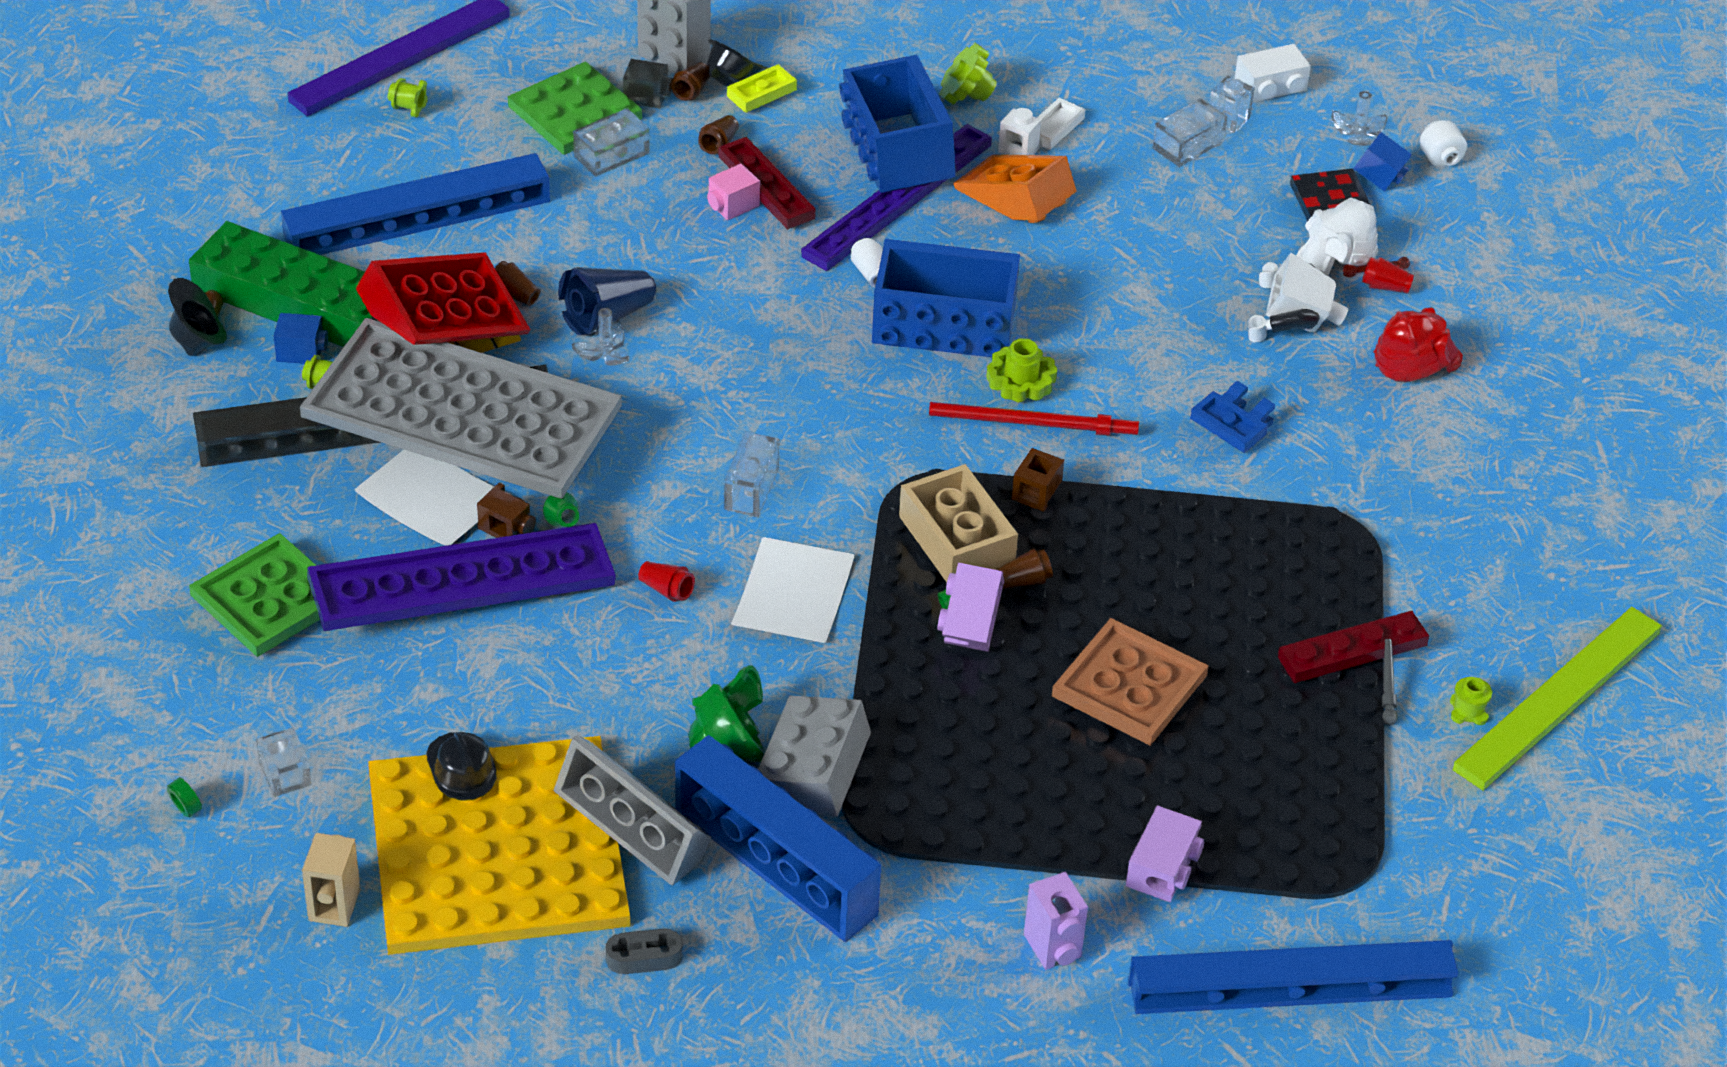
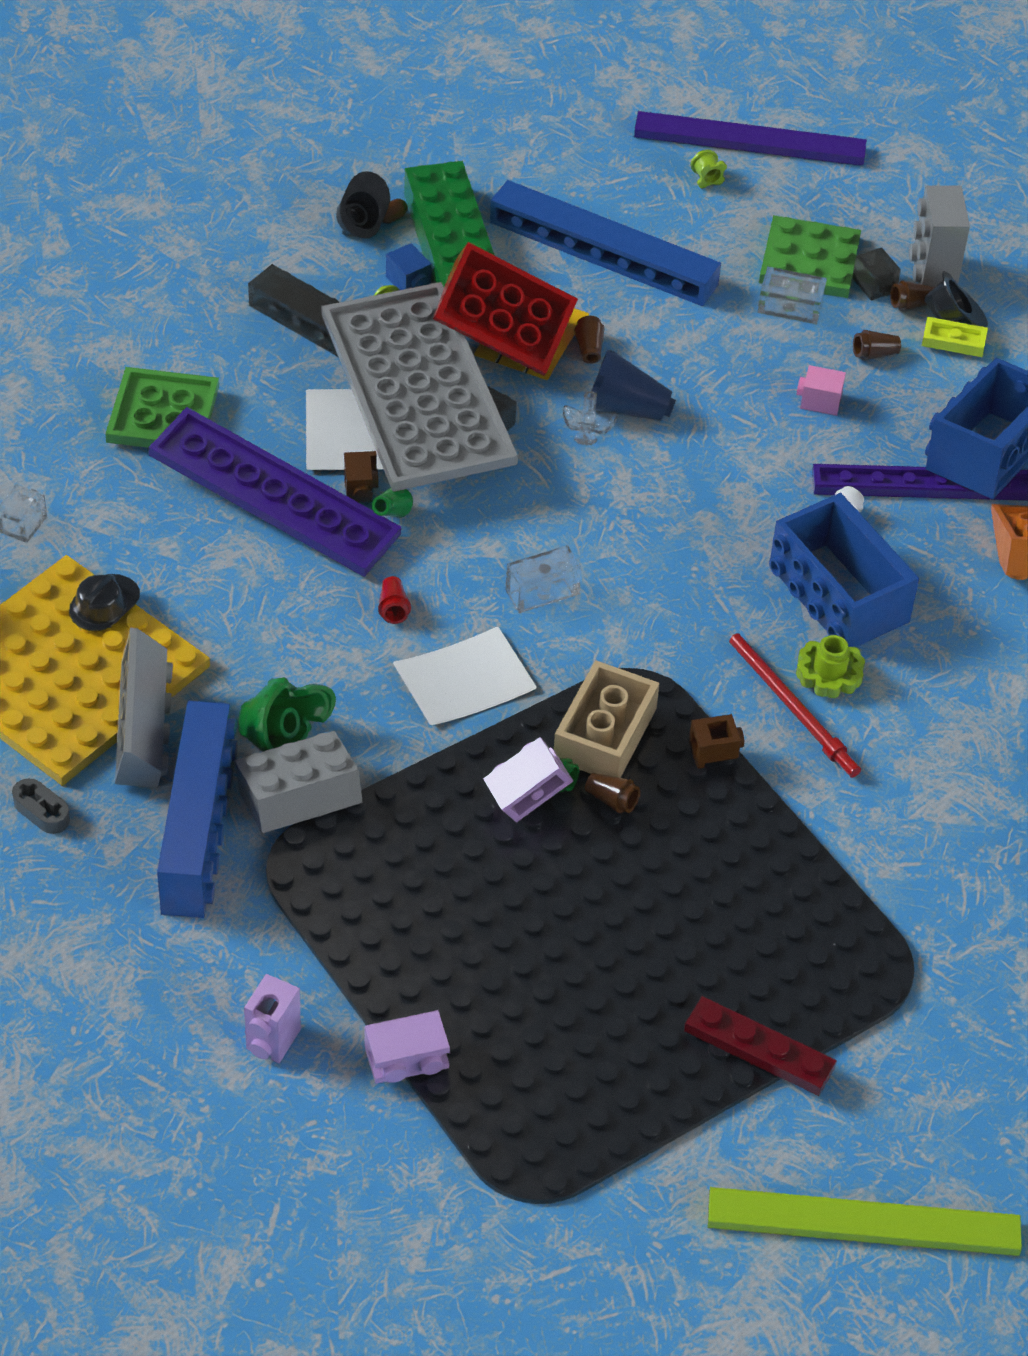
camera: 50 degrees right, 5 degrees up
(775, 189) = (857, 402): dark red plate -> none
(1130, 681) = (566, 923): nougat plate -> none
(1229, 421) = (926, 825): blue plate -> none
(1292, 976) = (376, 1209): blue tile -> none
(1389, 698) = (732, 1105): dark grey piece -> none
(1470, 700) = (789, 1161): lime brick -> none

